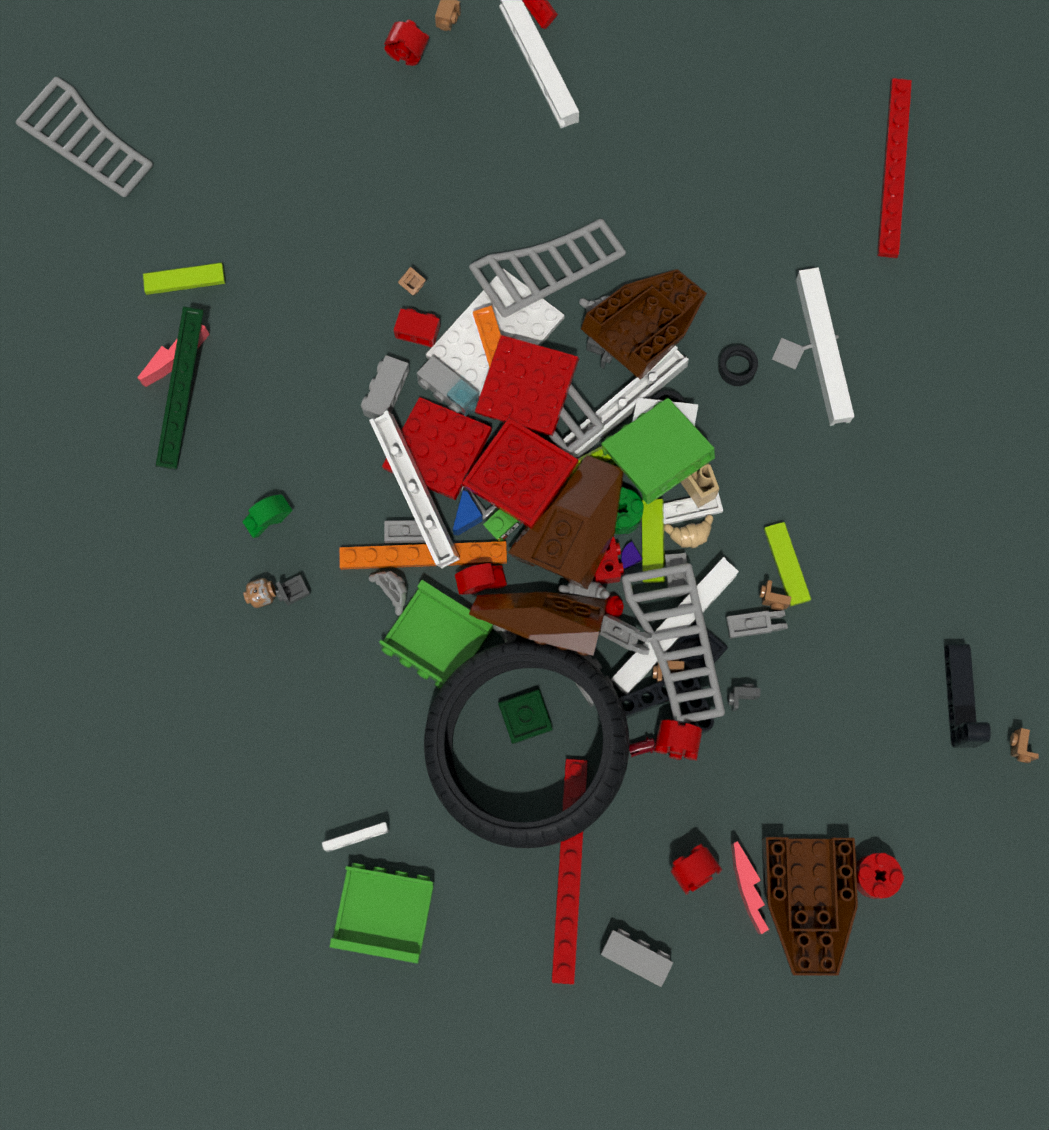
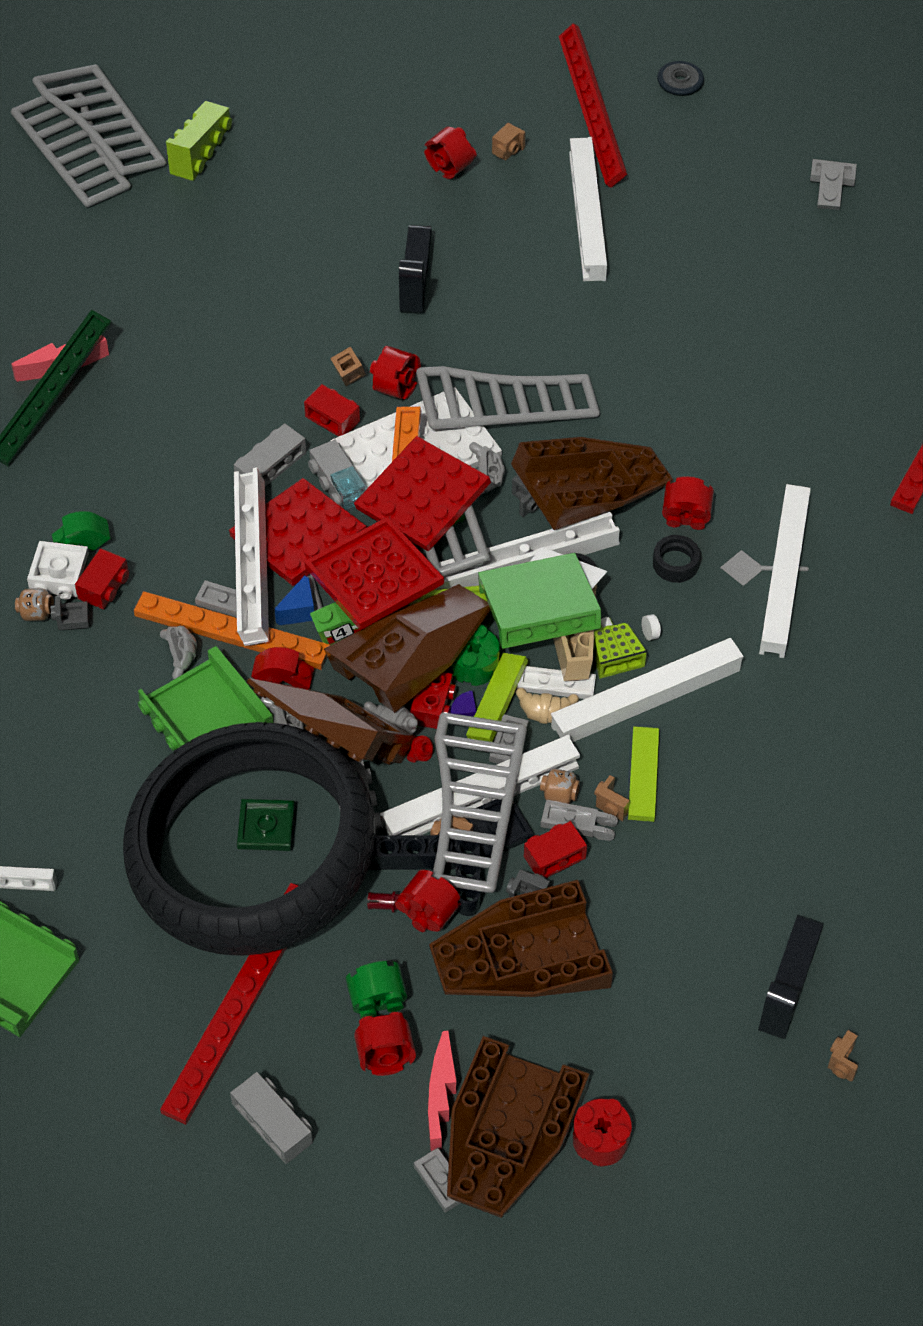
camera: 20 degrees right, 20 degrees down
(97, 121) = (93, 131): none -> light grey bar
(184, 278) = (109, 295): lime tile -> none
(190, 100) = (197, 140): none -> lime wedge
(264, 554) = (57, 568): none -> white plate
(303, 550) = (102, 579): none -> red brick
(429, 177) = (414, 269): none -> black beam
(452, 274) = (395, 372): none -> red brick
(563, 335) = (489, 464): none -> light grey piece
(624, 634) = (416, 773): light grey hinge -> none
(670, 827) = (376, 988): none -> green brick
(728, 464) = (617, 649): none -> lime torso
(730, 314) = (687, 503): none -> red brick
(733, 601) = (560, 786): none -> medium nougat head
(743, 435) = (651, 627): none -> white tile
(751, 658) = (555, 850): none -> red brick
(763, 493) = (647, 691): none -> white tile
(763, 751) = (524, 948): none -> reddish brown wedge
(774, 955) = (434, 1173): none -> light grey plate

